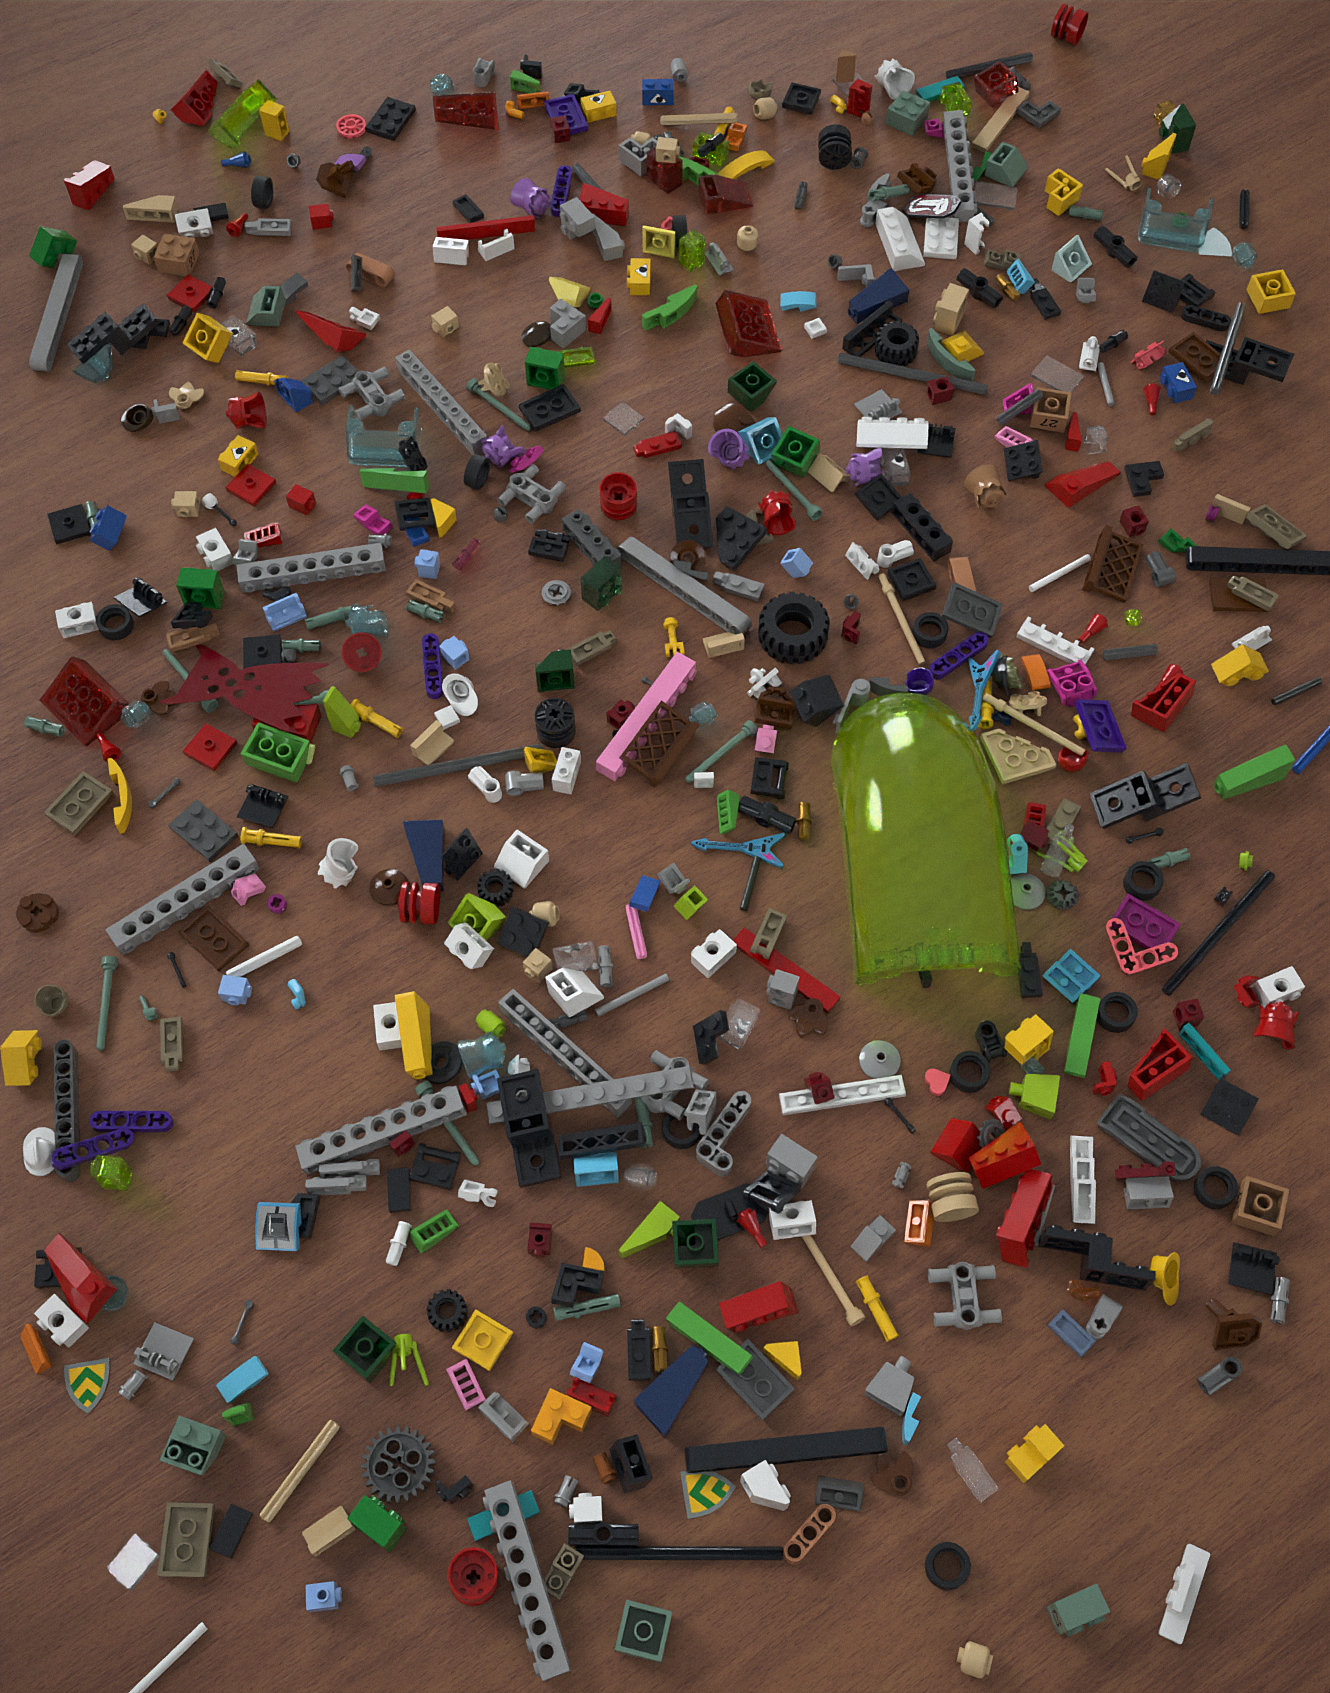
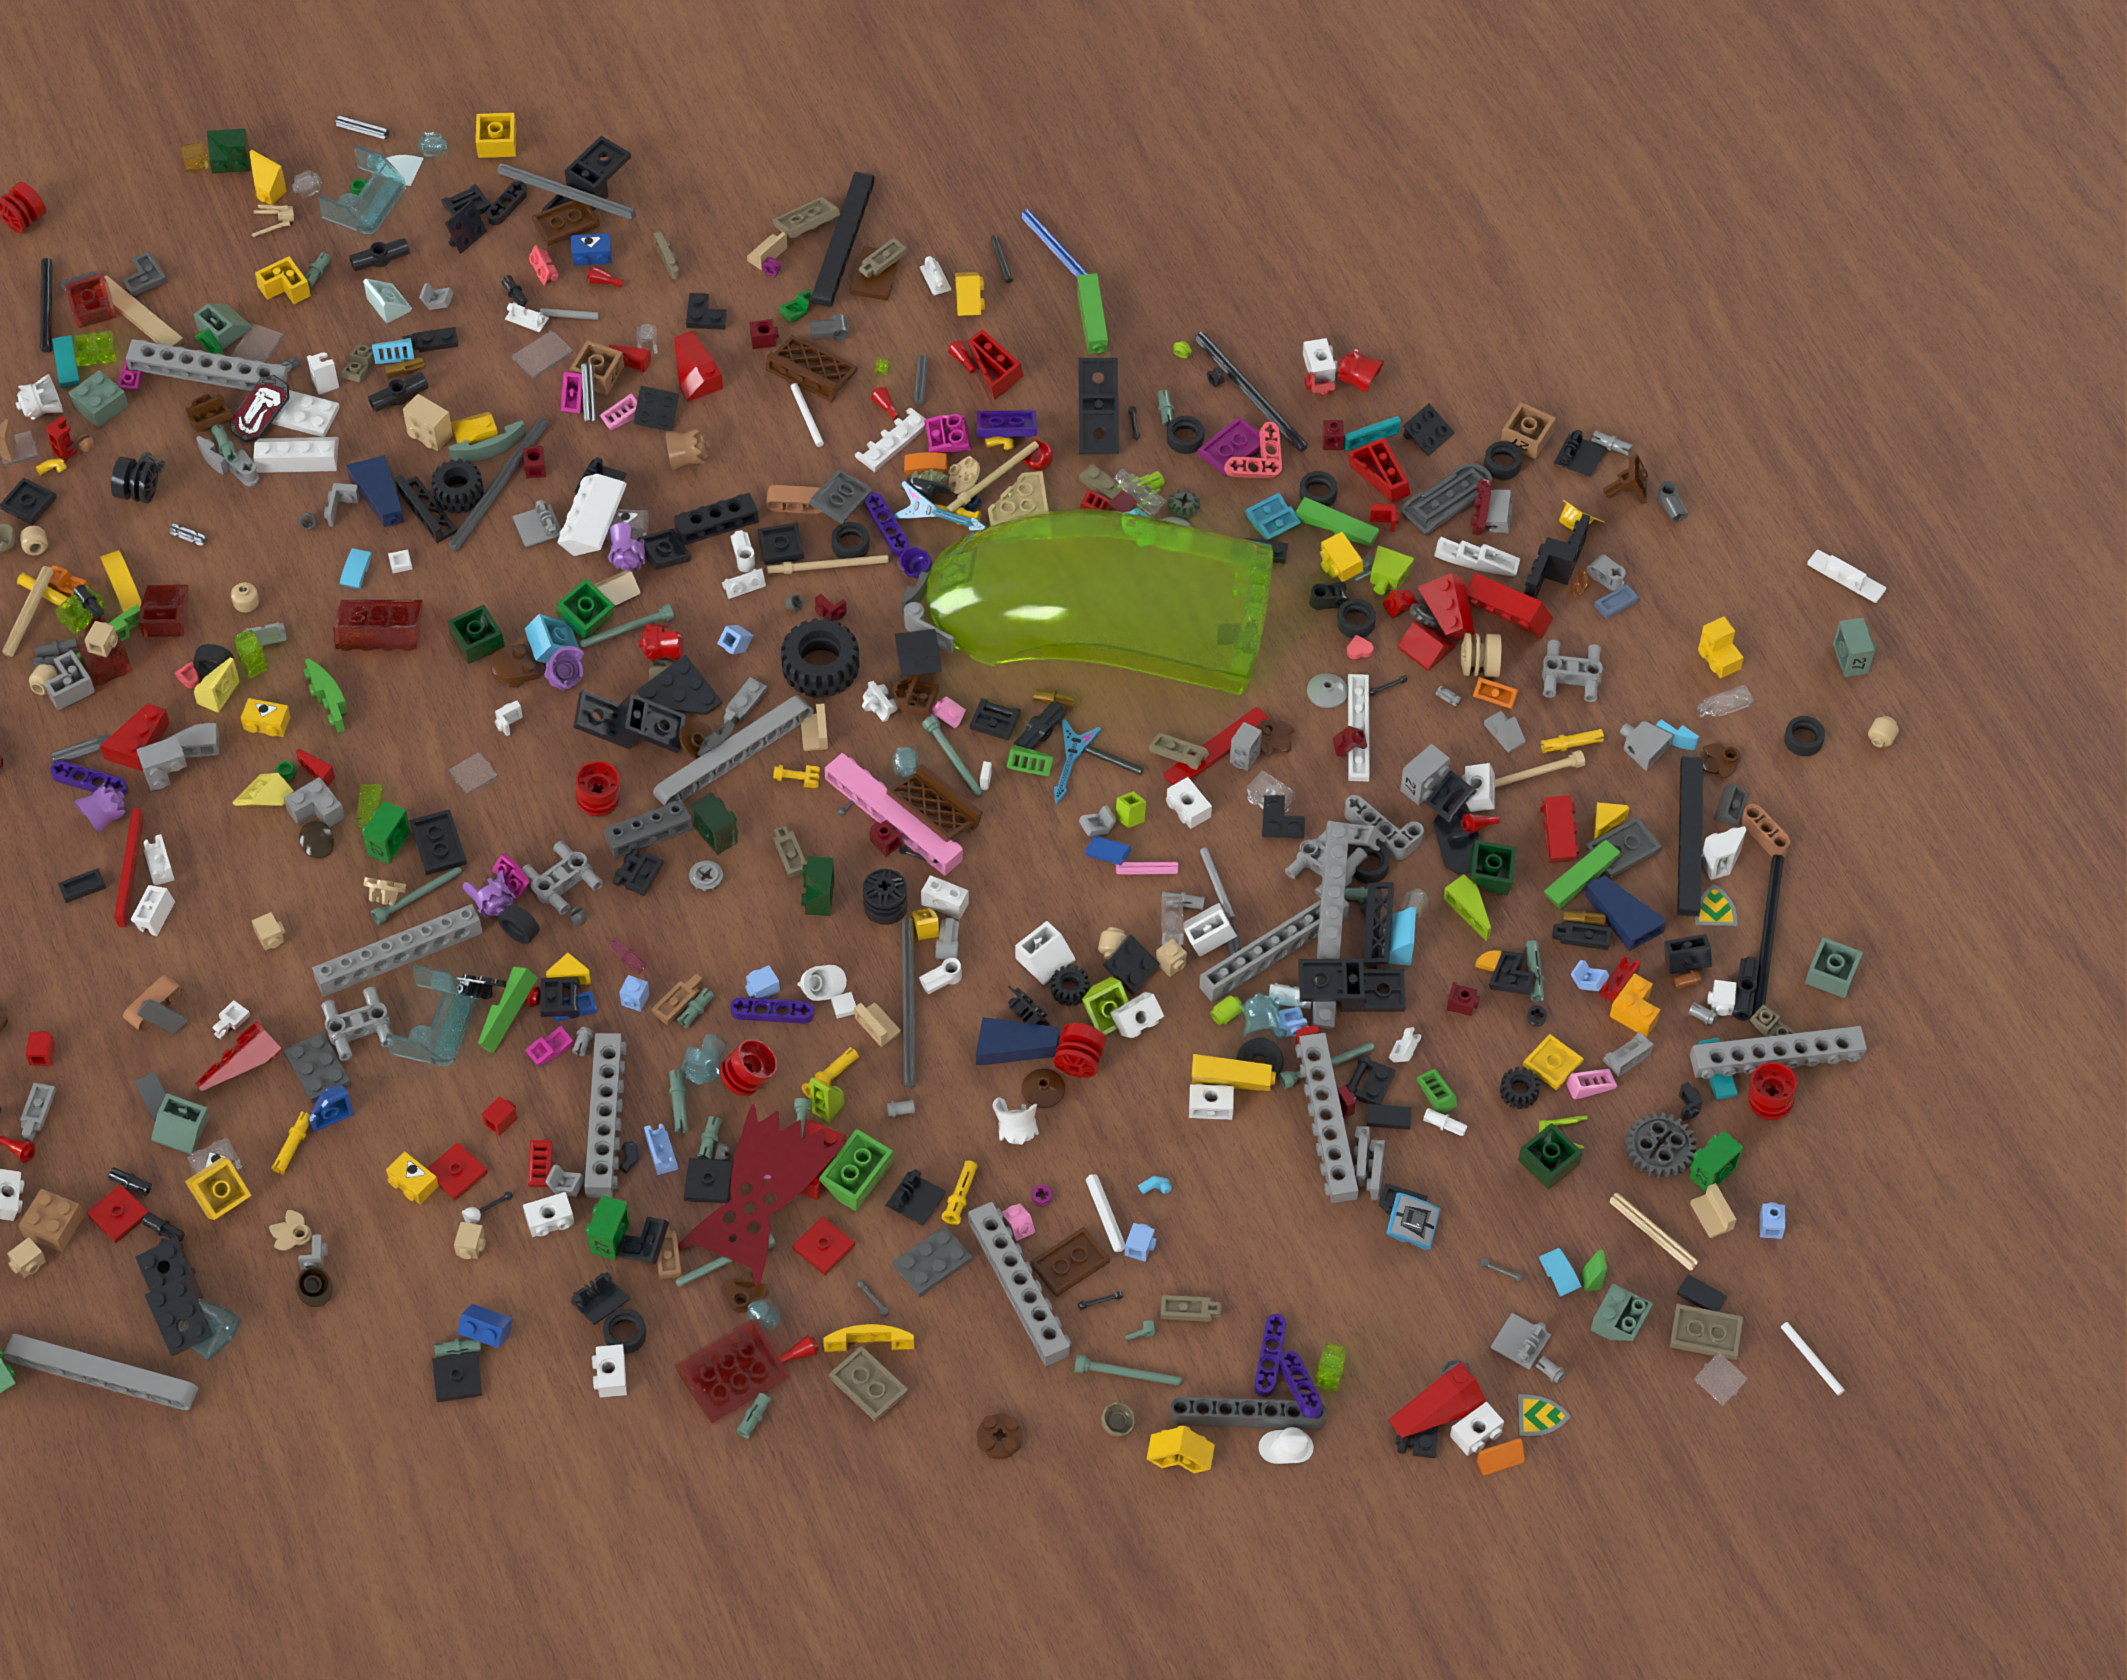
camera: 80 degrees left, 5 degrees down
(247, 411) = (347, 1160): red hat -> none
(658, 445) = (524, 744): red hinge -> none

